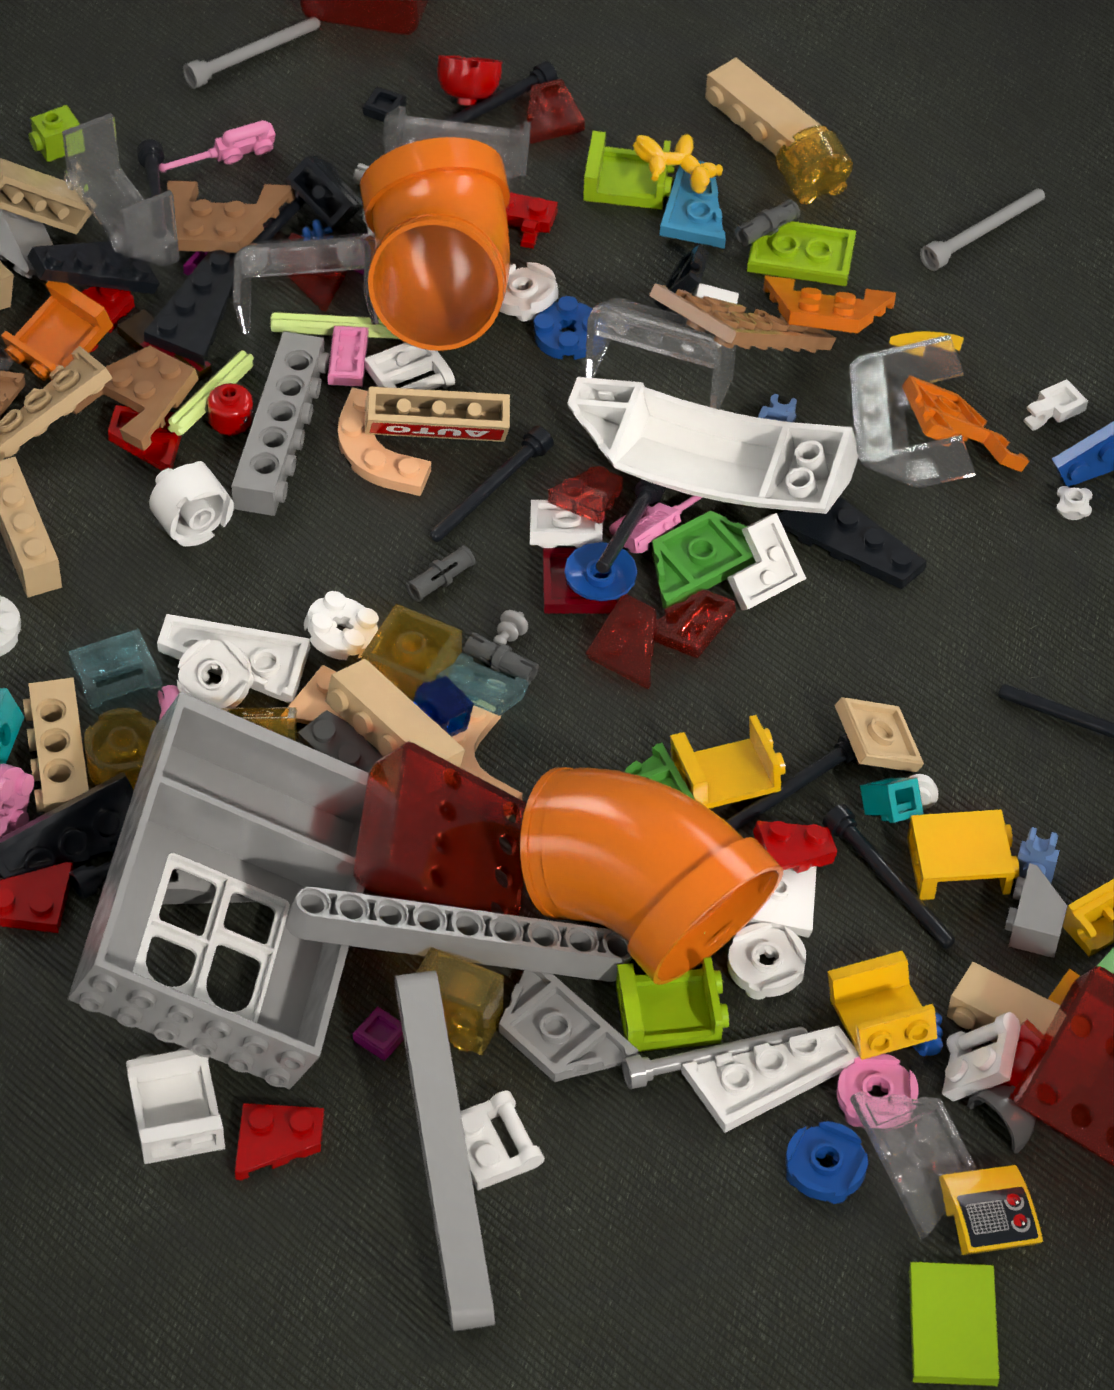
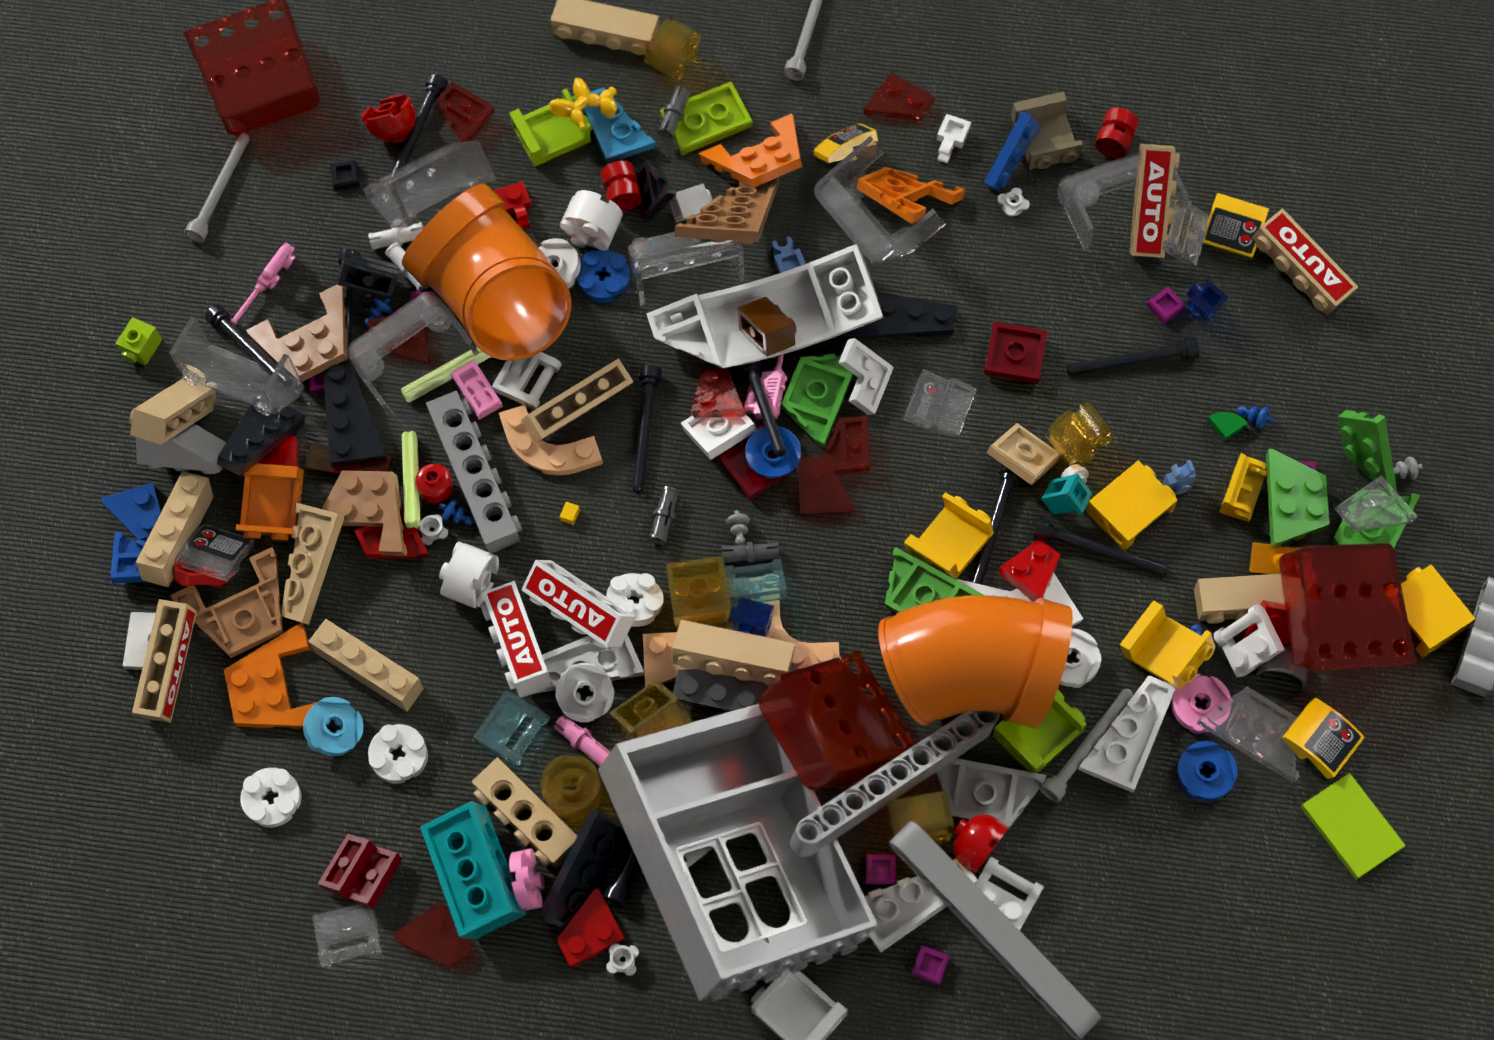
camera: 30 degrees left, 15 degrees up
(38, 935) = (618, 951): none -> white plate
(186, 587) = (517, 640): none -> brick
(194, 448) = (432, 521): none -> white plate
(228, 446) = (450, 510): none -> blue hair
(276, 590) = (578, 604): none -> brick
(276, 1136) = (873, 985): red wing -> none
(346, 517) = (569, 513): none -> yellow piece
(354, 1156) = (930, 965): none -> magenta tile
(372, 1080) = (903, 908): none -> white wing
(505, 1060) = (977, 840): none -> red cylinder
(593, 266) = (591, 220): none -> white brick
(654, 257) = (621, 185): none -> red wheel
(694, 455) = (766, 326): none -> reddish brown brick
(827, 640) = (939, 404): none -> clear slope
(954, 639) = (1015, 352): none -> dark red plate
(955, 746) = (1079, 434): none -> clear yellow brick
(1027, 342) = (900, 100): none -> clear red wing
(1039, 914) = (1205, 515): light grey slope -> none

